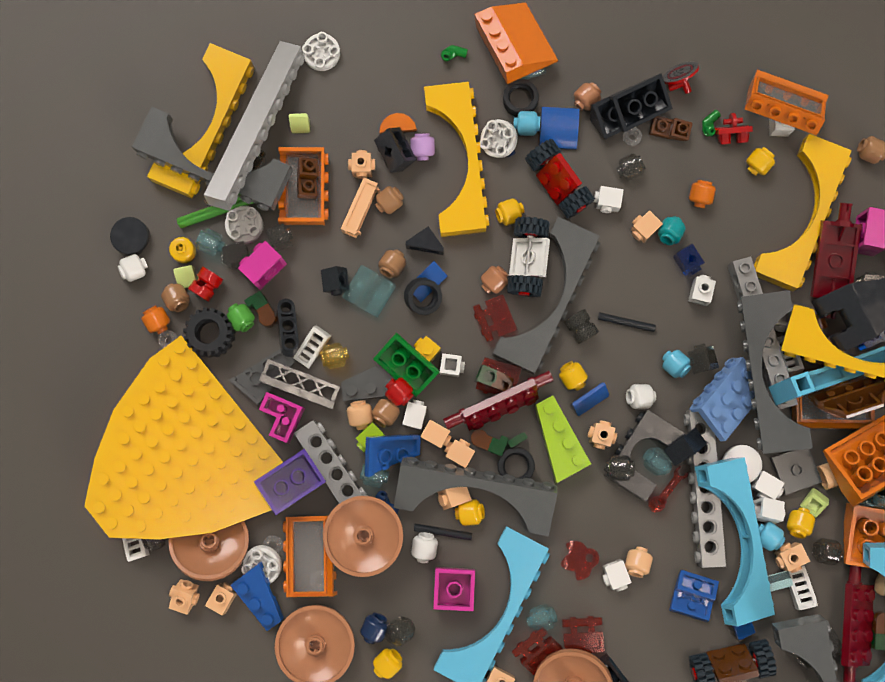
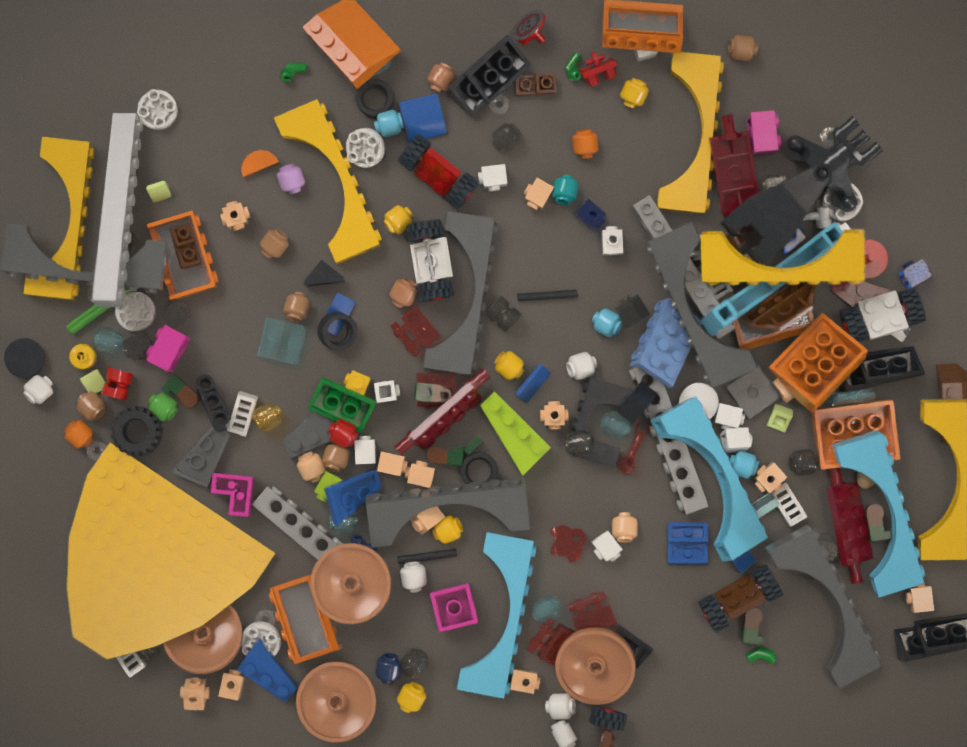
camera: 20 degrees left, 5 degrees up
(289, 482) = (263, 553): brick -> none
(301, 392) = (242, 462): fence -> none
(335, 280) = (245, 341): black brick -> none
(359, 208) = (247, 260): light nougat container -> none
(395, 149) = (264, 191): black brick -> none
(800, 523) = (770, 442): yellow head -> none

